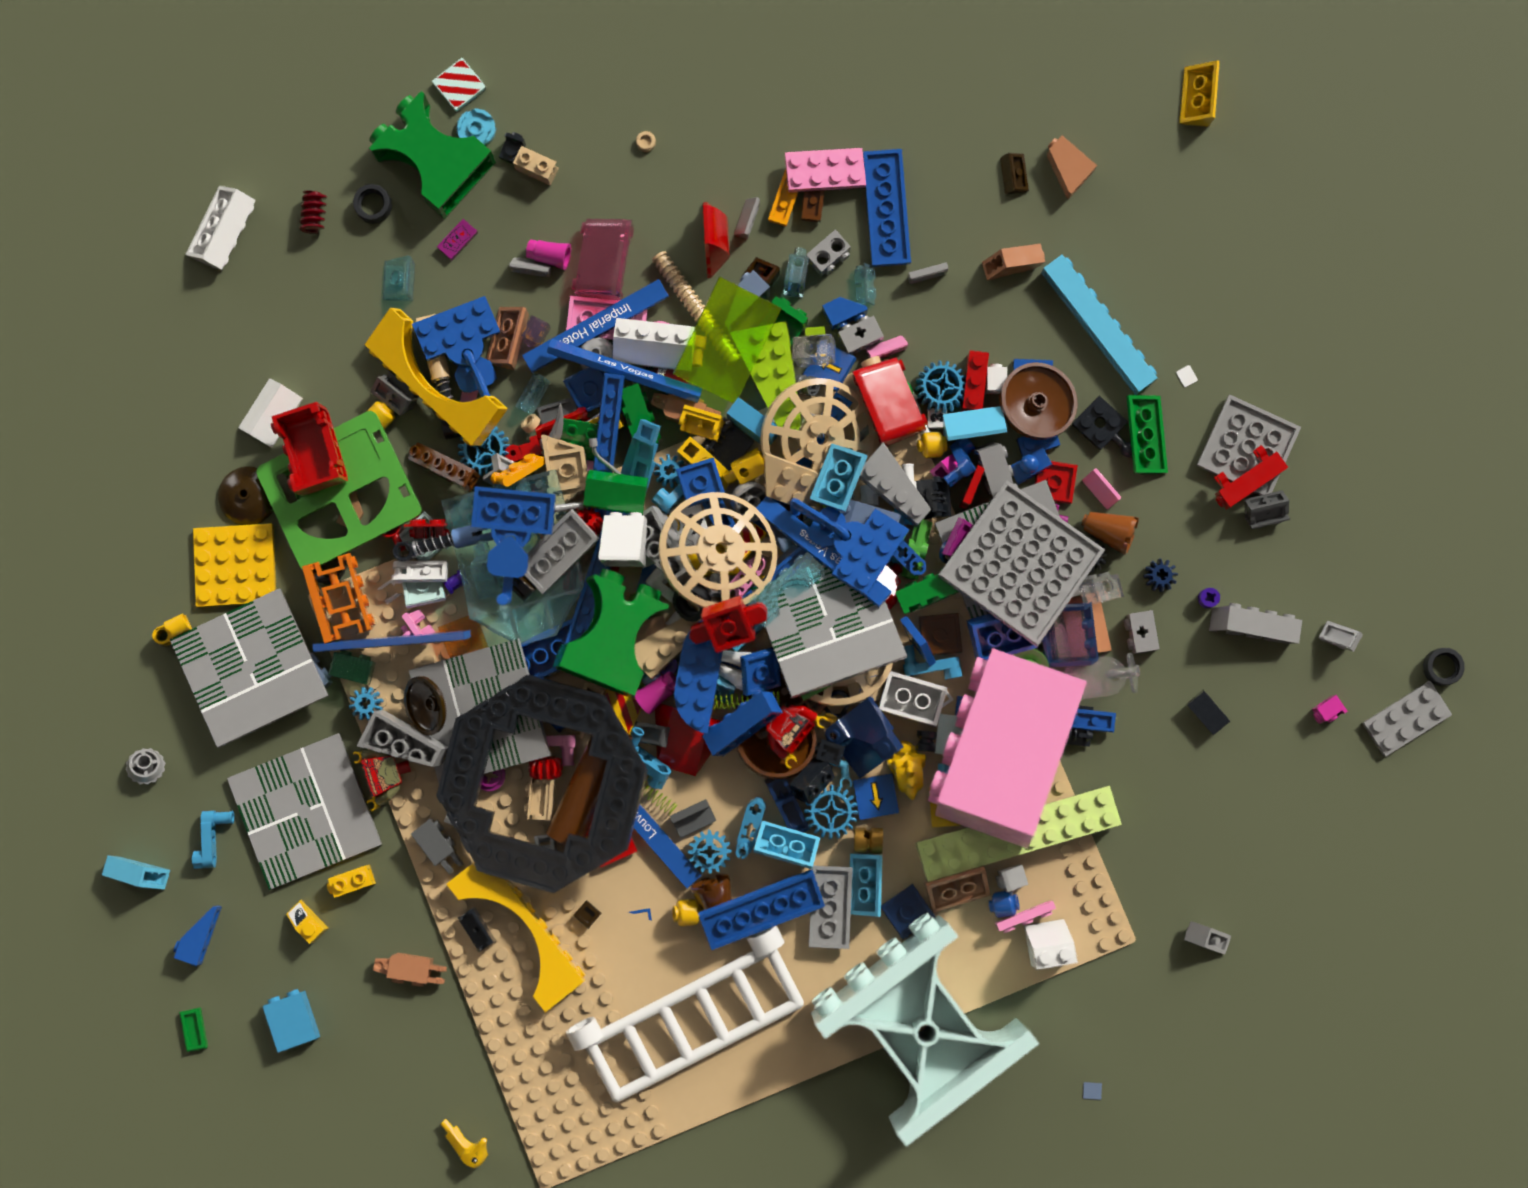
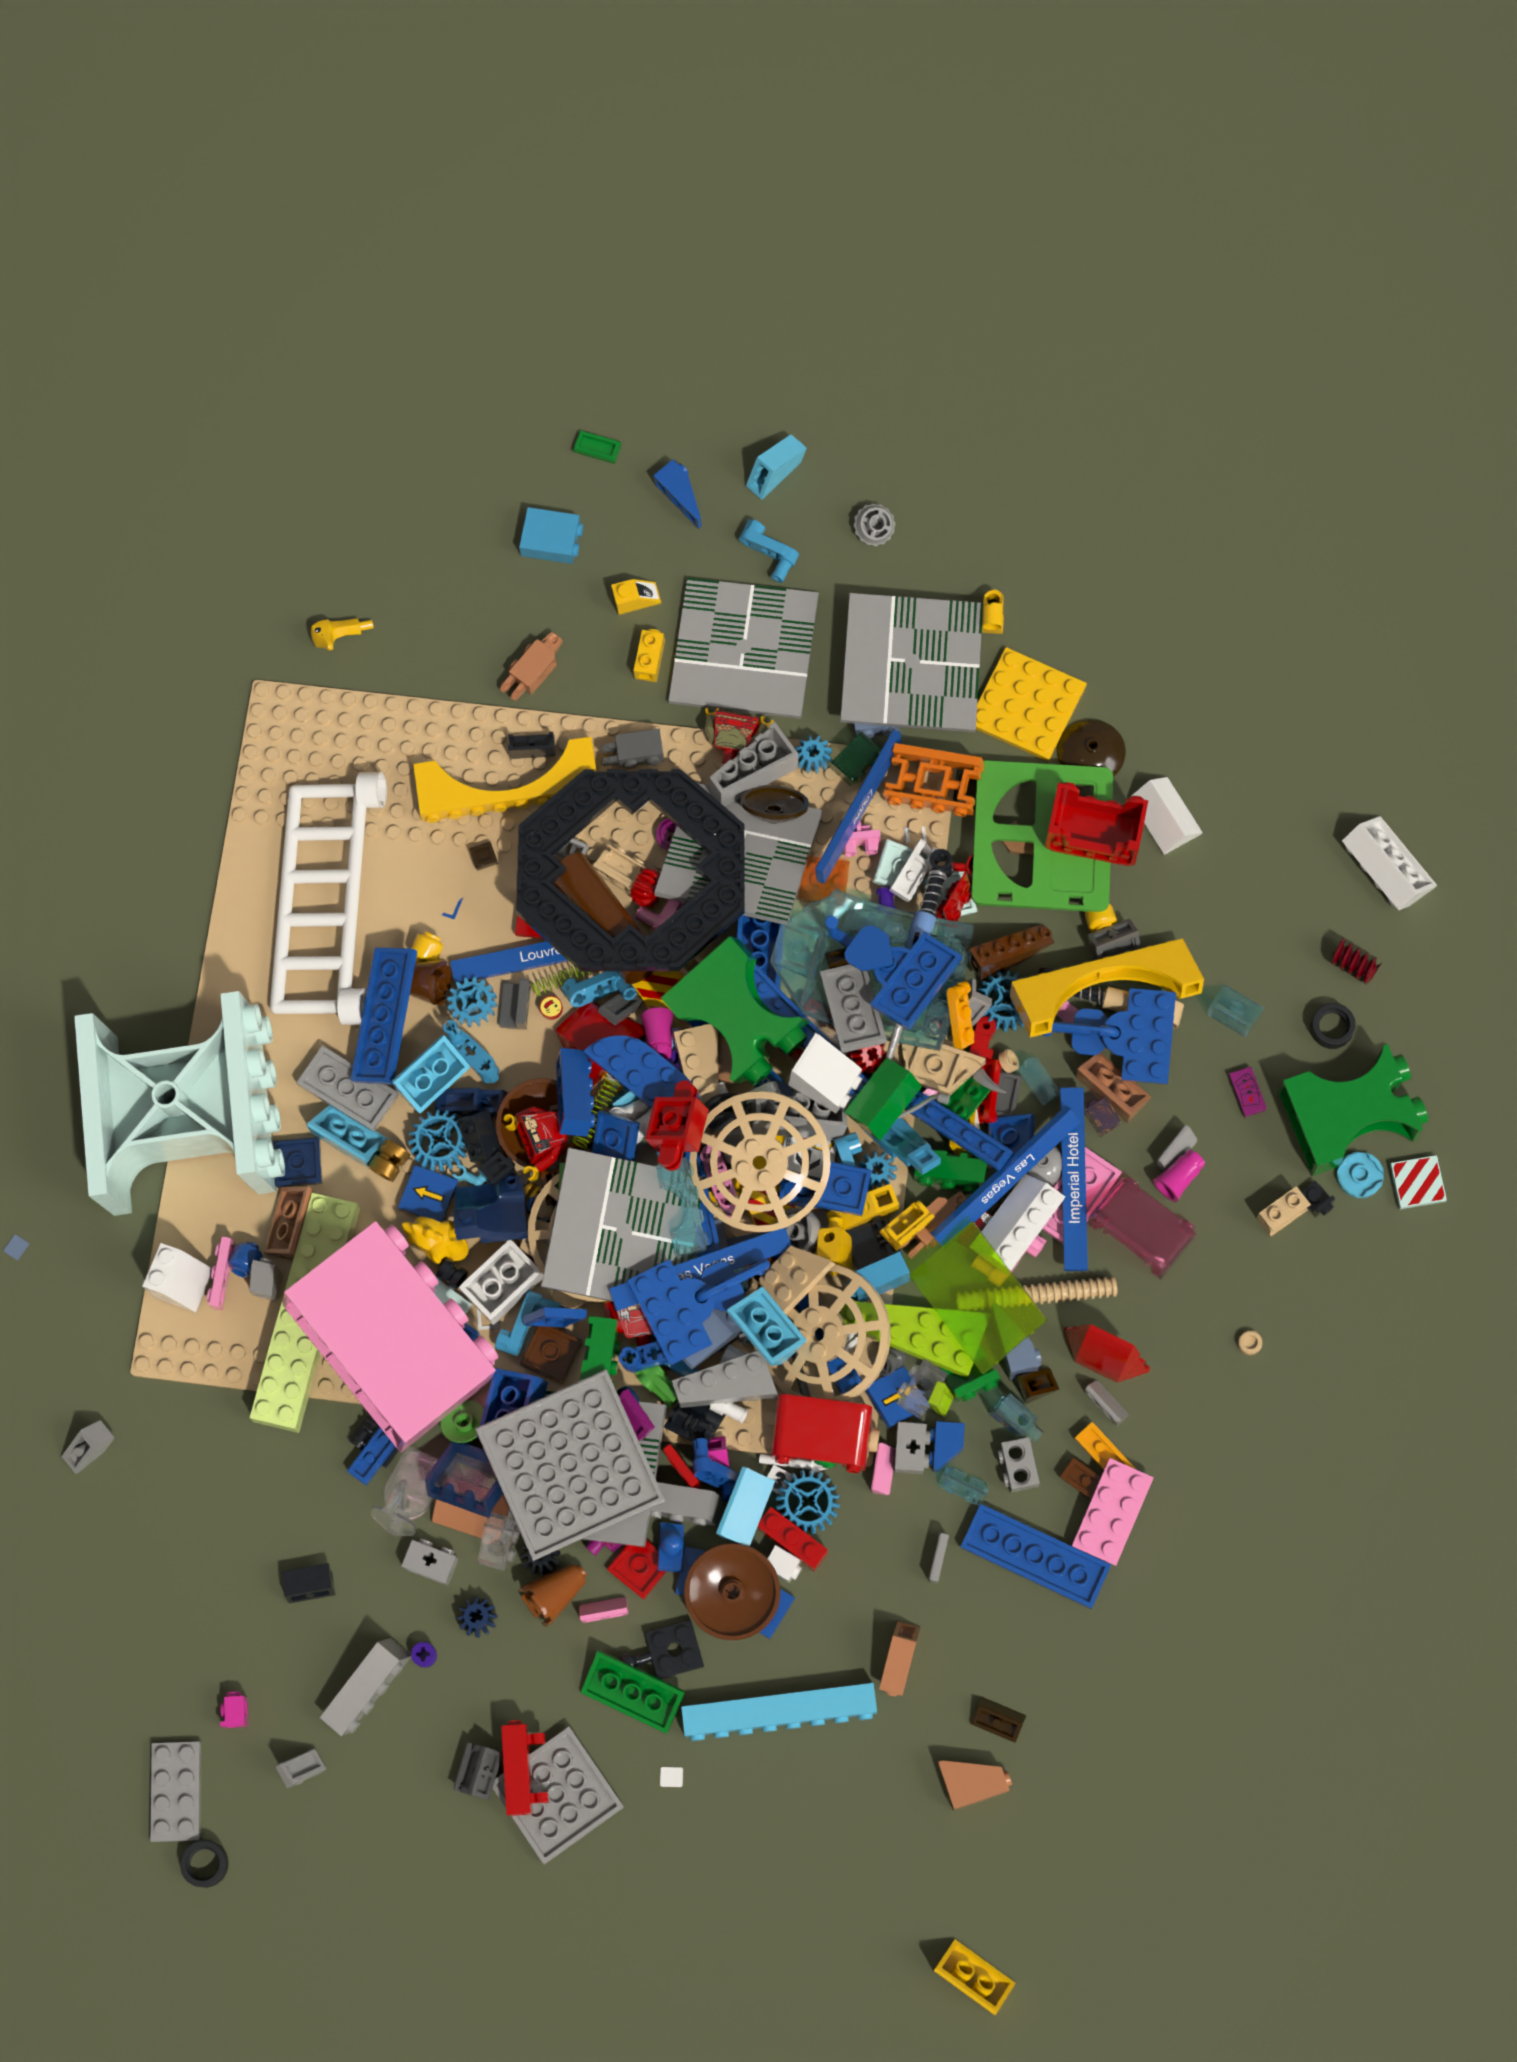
camera: 125 degrees right, 10 degrees down
(679, 789) = (551, 1007): none -> tile
(932, 444) = (751, 1453): yellow head -> none

